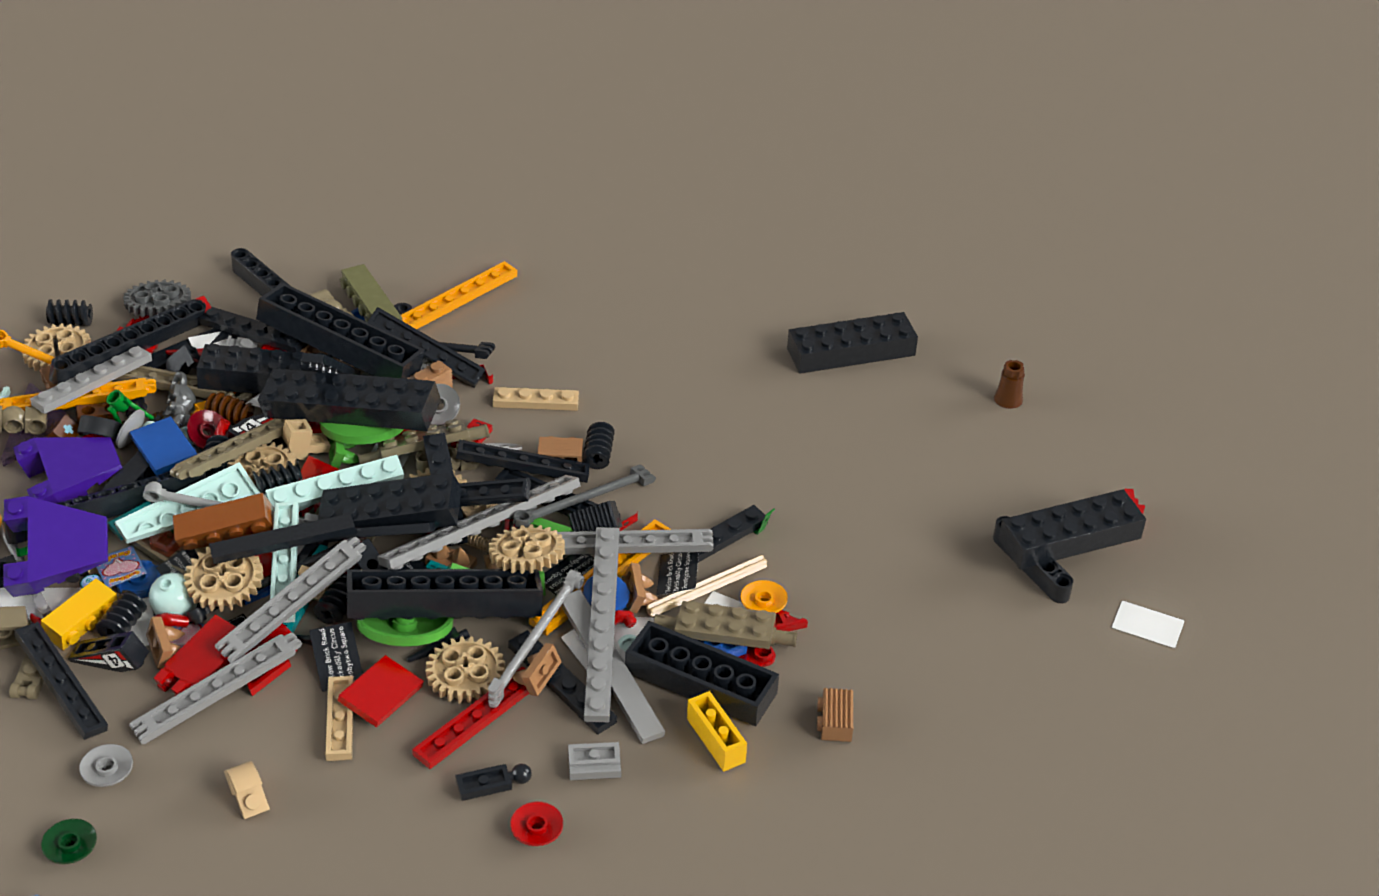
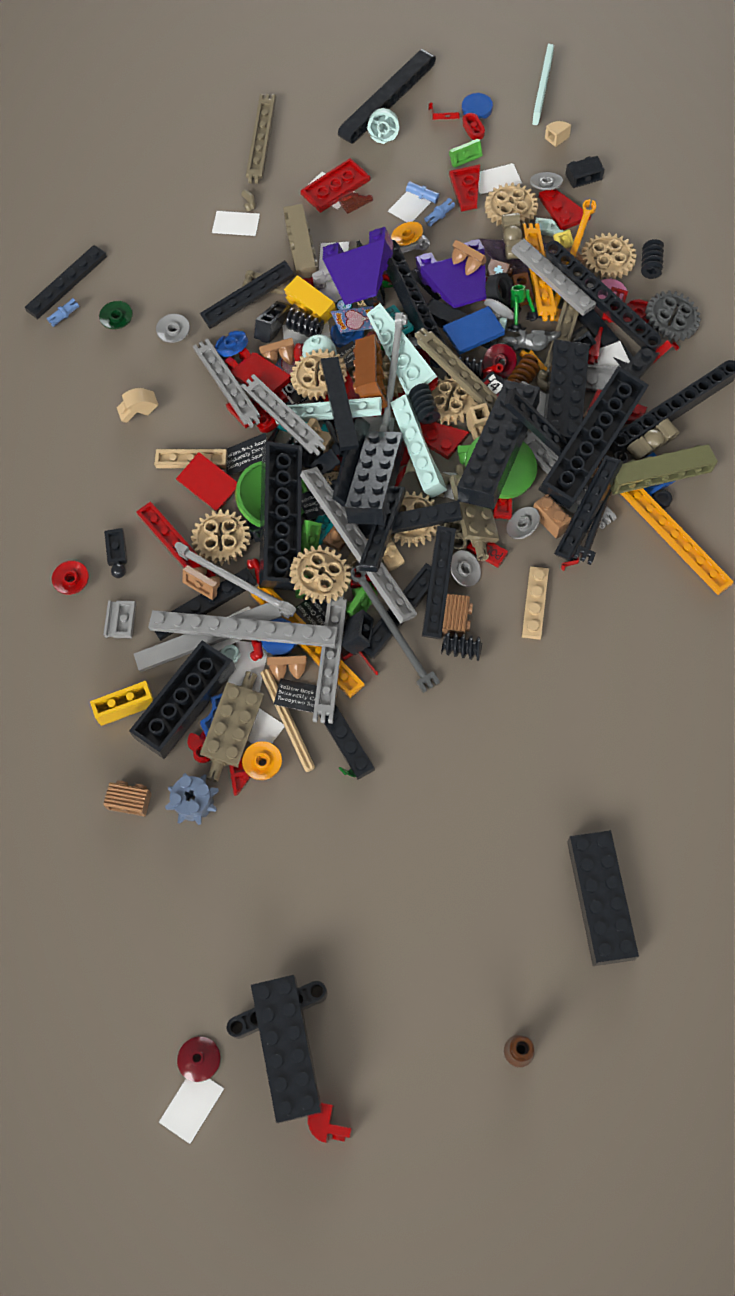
camera: 105 degrees right, 25 degrees up
(27, 379) = (564, 238): none -> light yellow tile
(43, 446) = (474, 260): none -> medium nougat tile
(145, 690) = (231, 344): none -> blue tile
(507, 631) = (254, 563): none -> red arm
(823, 652) = (193, 809): none -> sand blue brick
(1101, 622) = (209, 1061): none -> dark red dish

